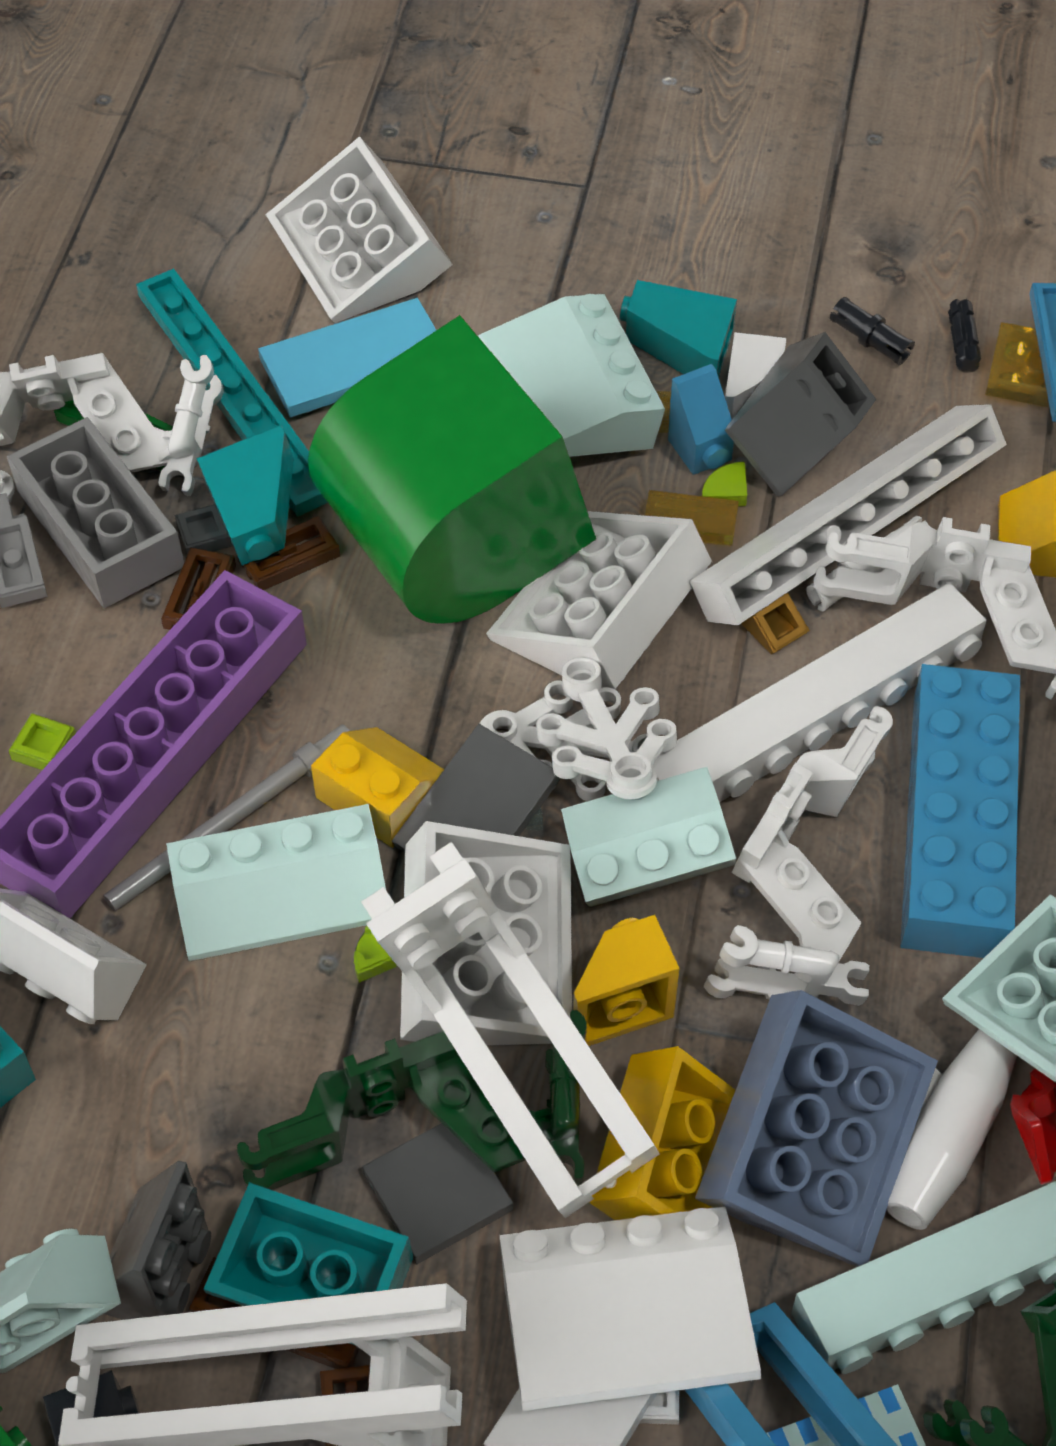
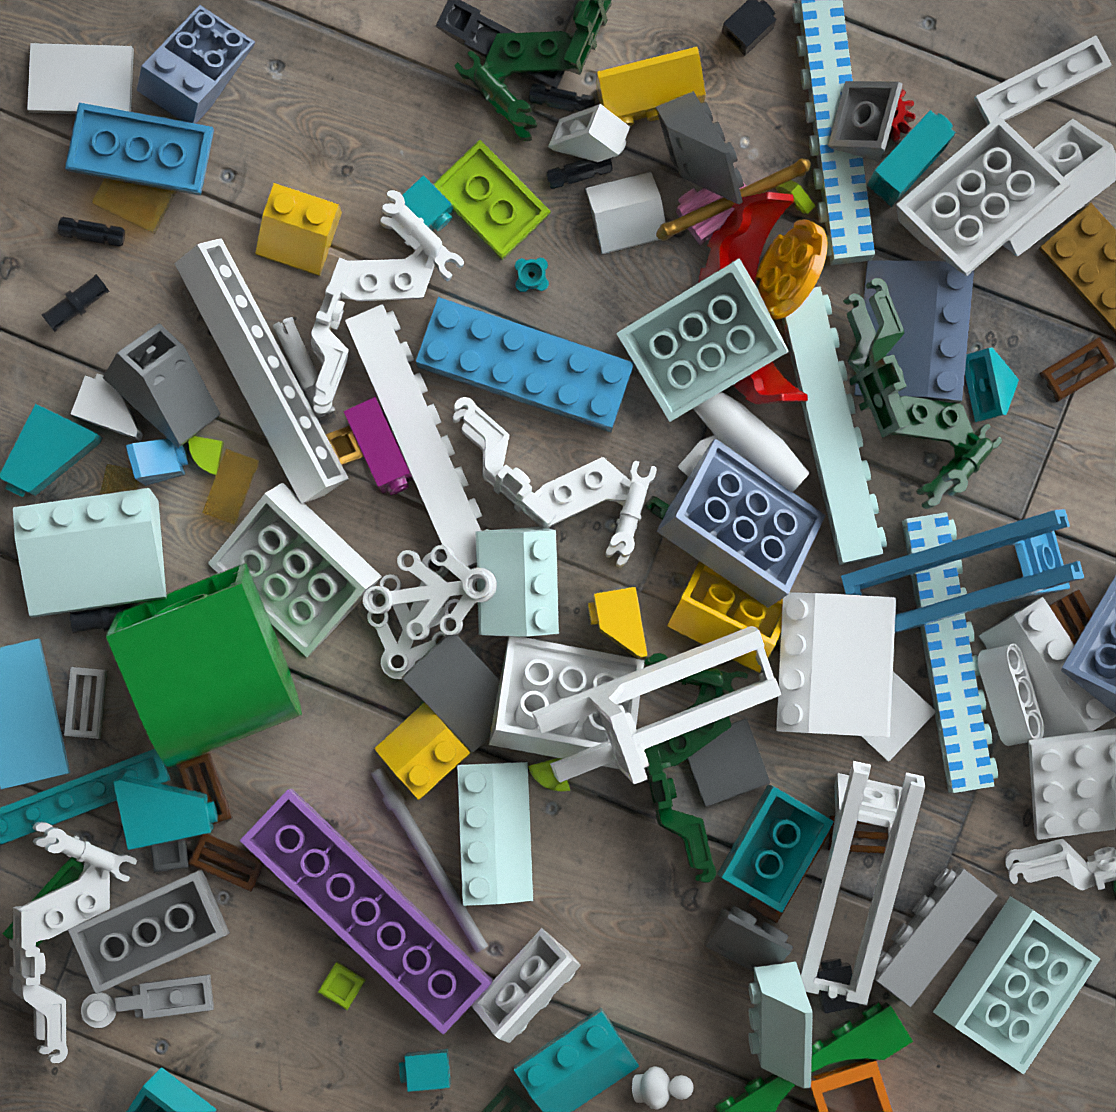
camera: 80 degrees left, 30 degrees up
(790, 637) = (379, 447): none -> magenta window

